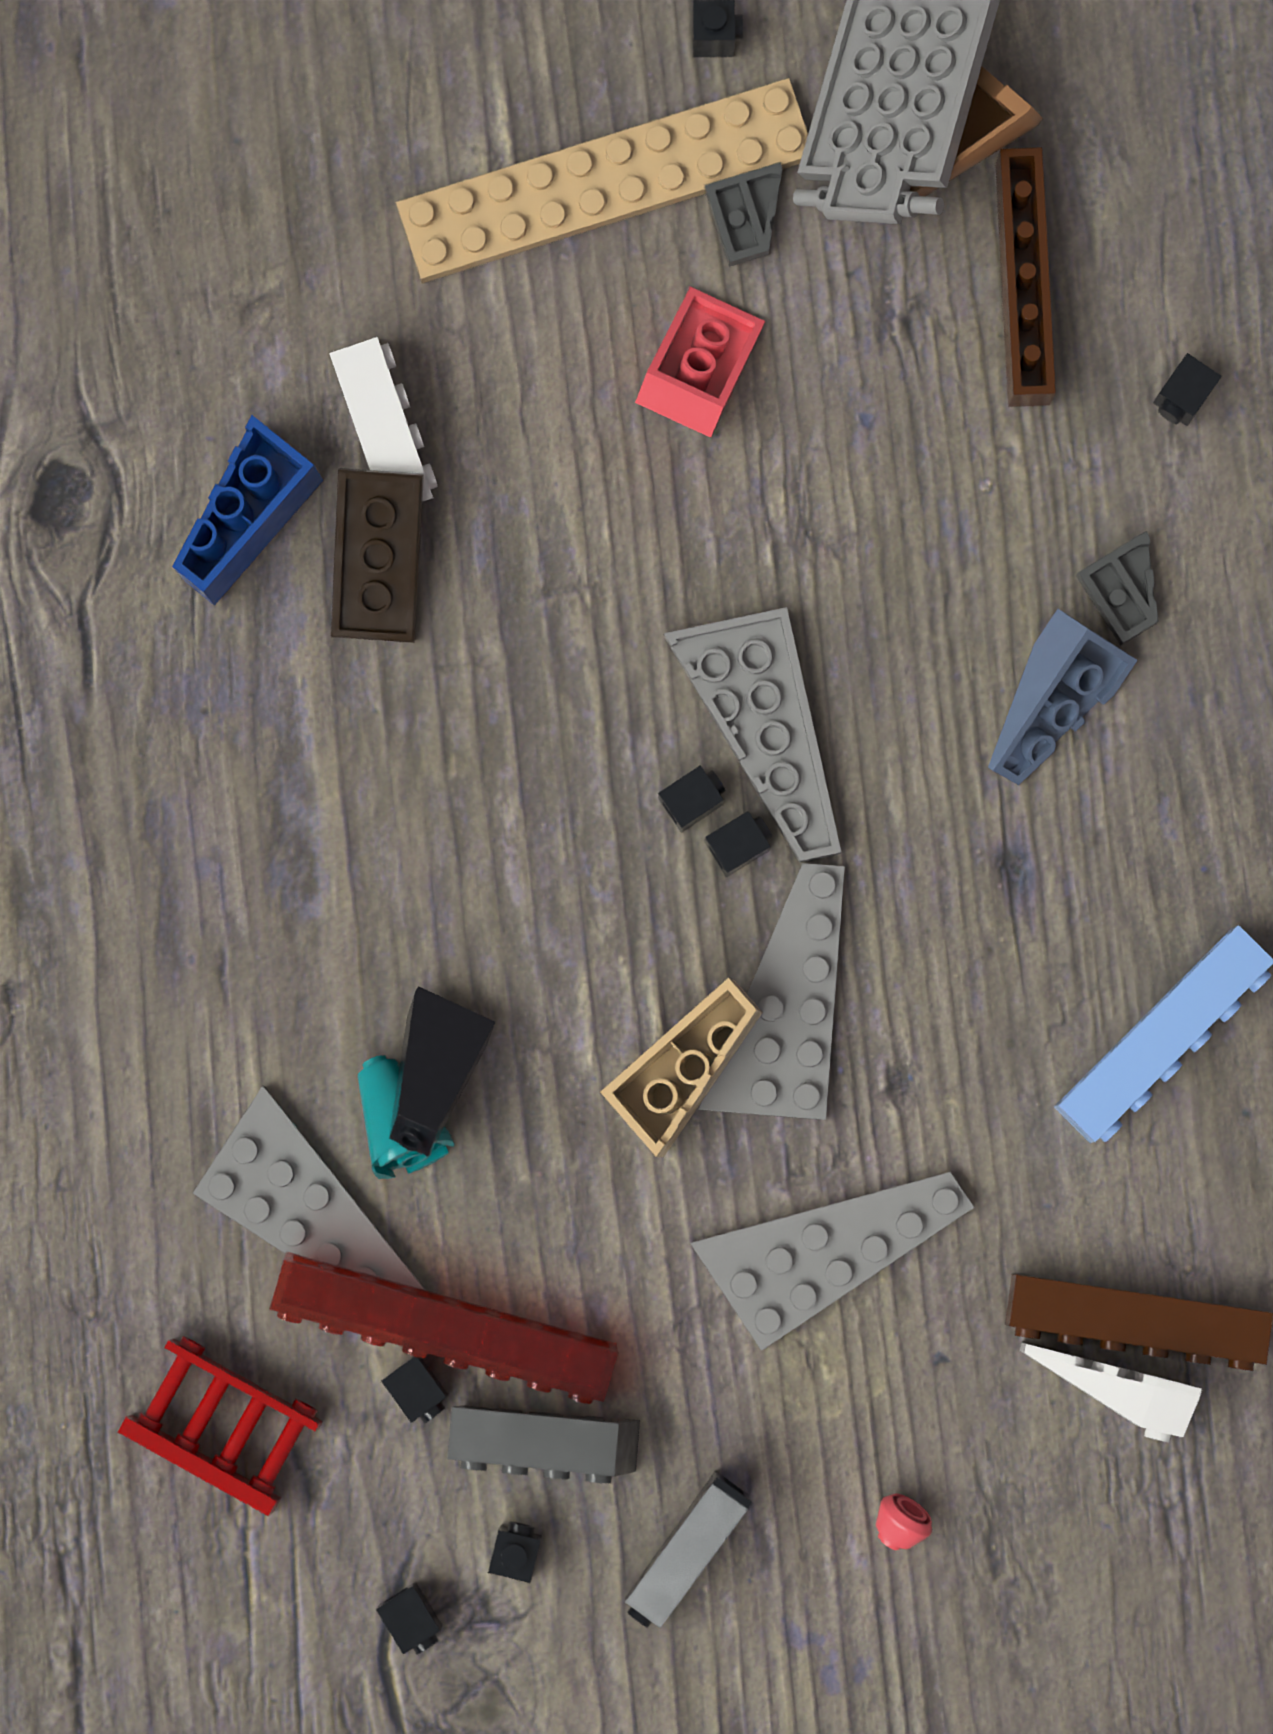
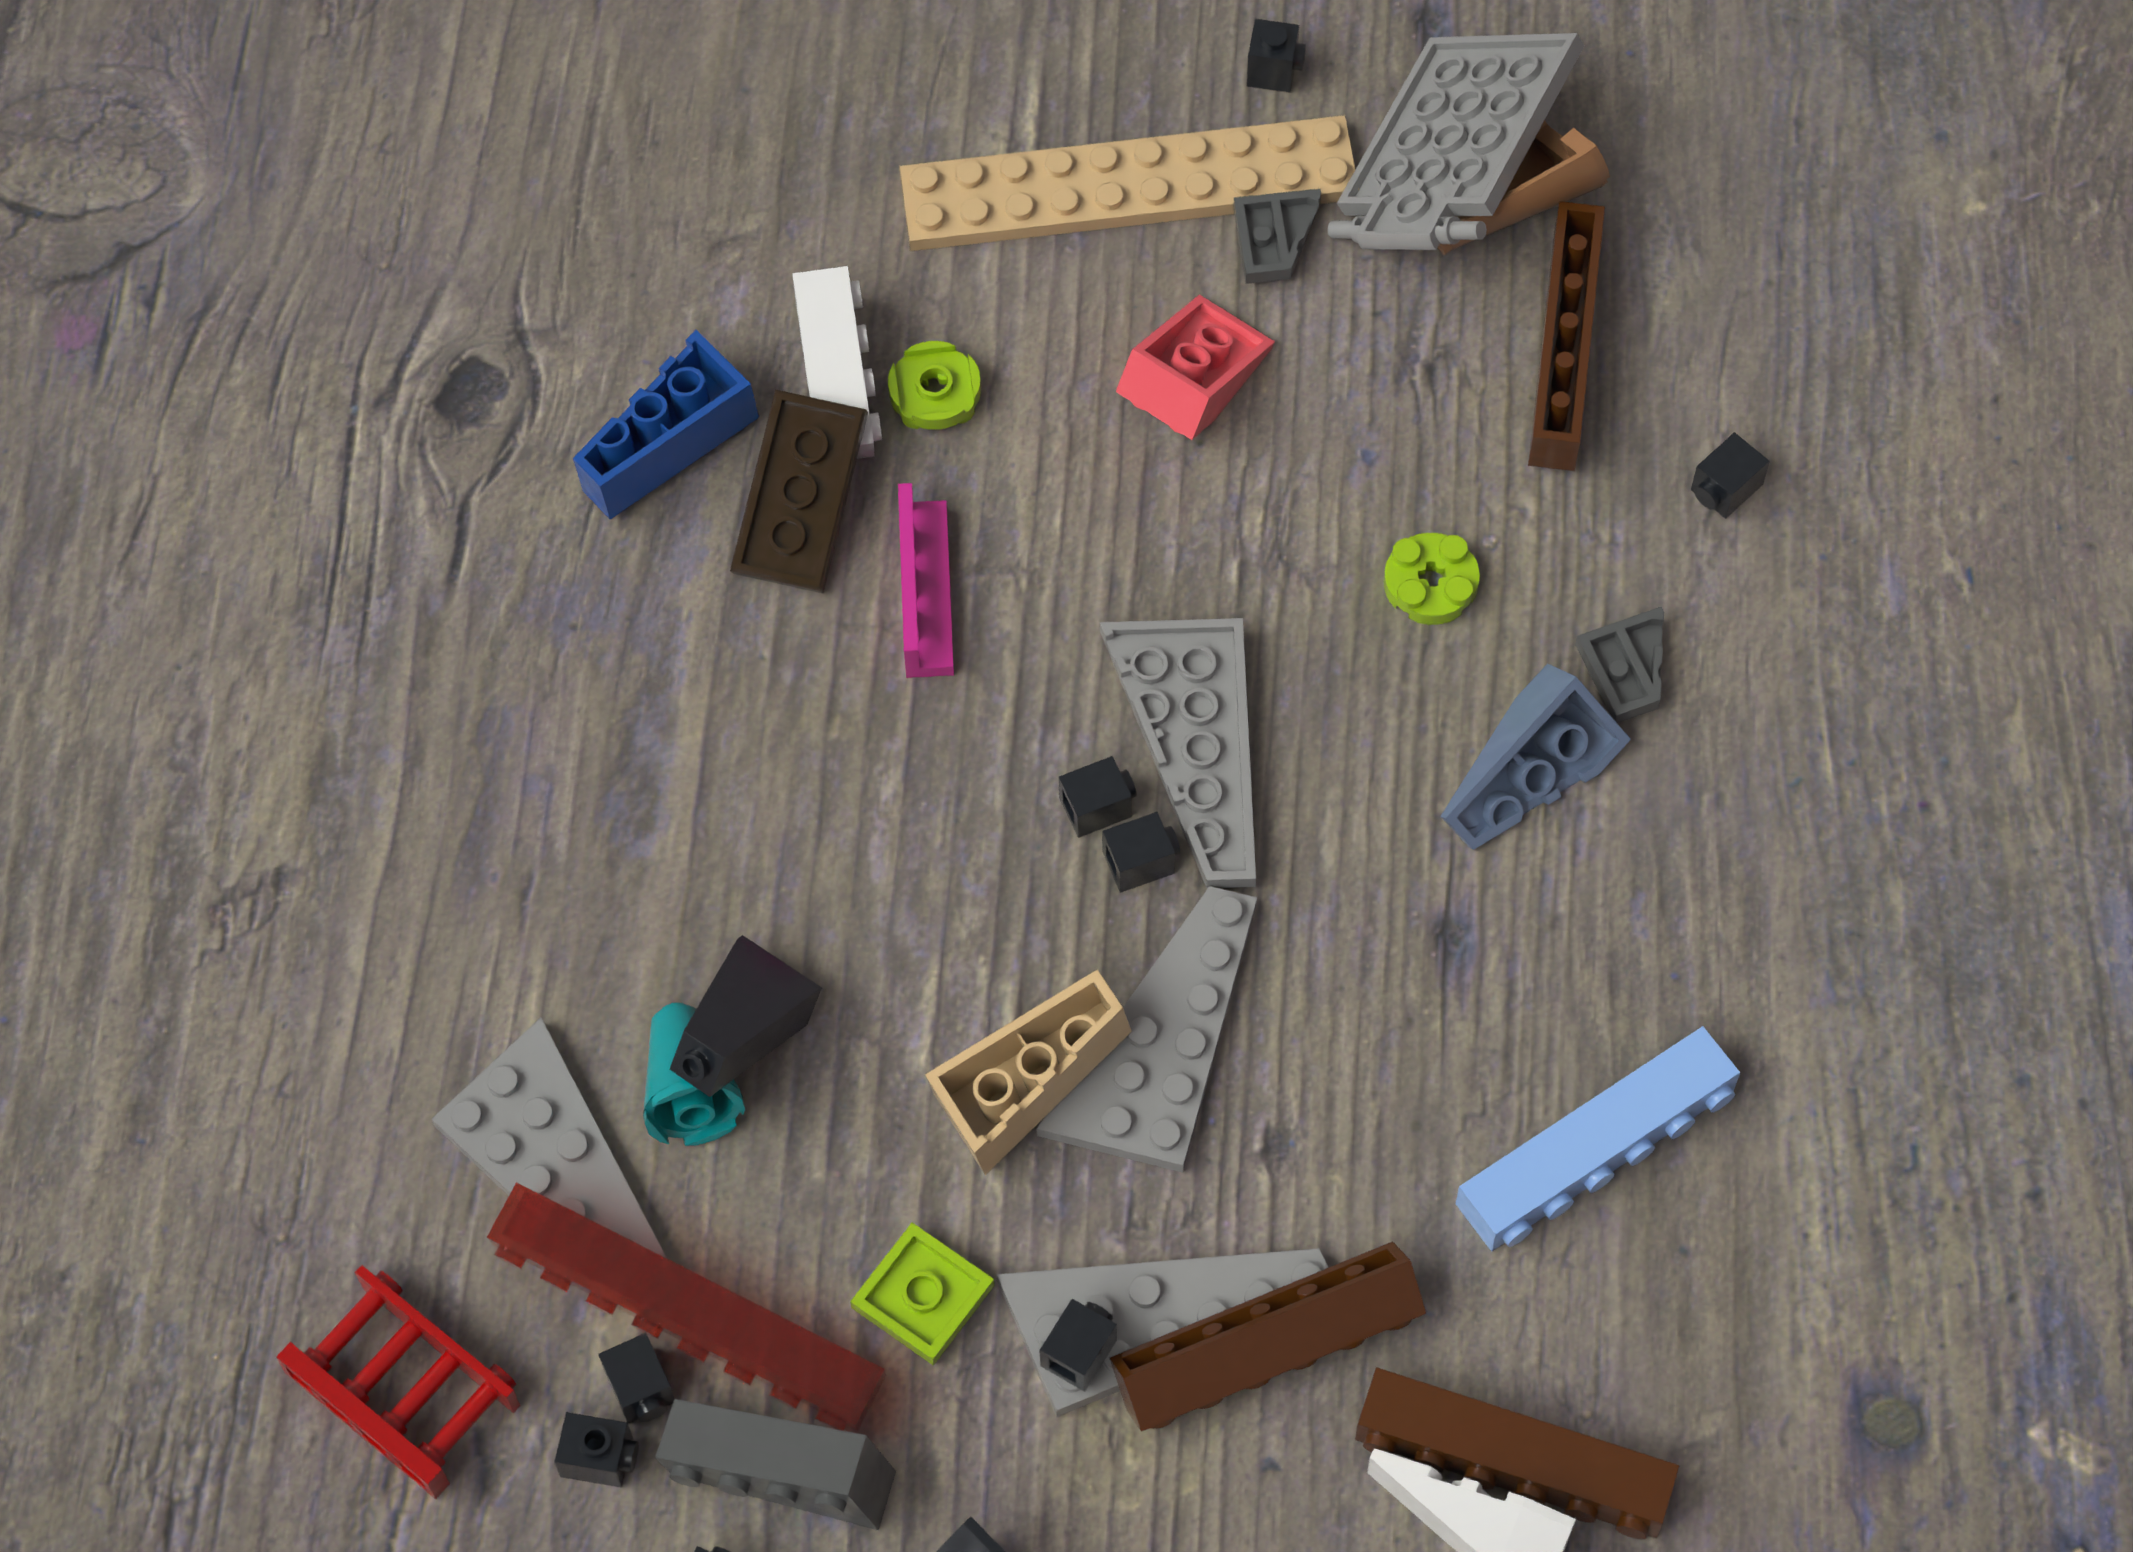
camera: 10 degrees right, 20 degrees down
(395, 1455) = (595, 1450): none -> black brick
(485, 402) = (934, 409): none -> lime plate
(504, 620) = (925, 586): none -> dark pink fence
(632, 1270) = (922, 1293): none -> lime plate
(772, 1300) = (1079, 1343): none -> black brick
(923, 1260) = (1268, 1336): none -> reddish brown brick
(930, 554) = (1435, 553): none -> lime plate

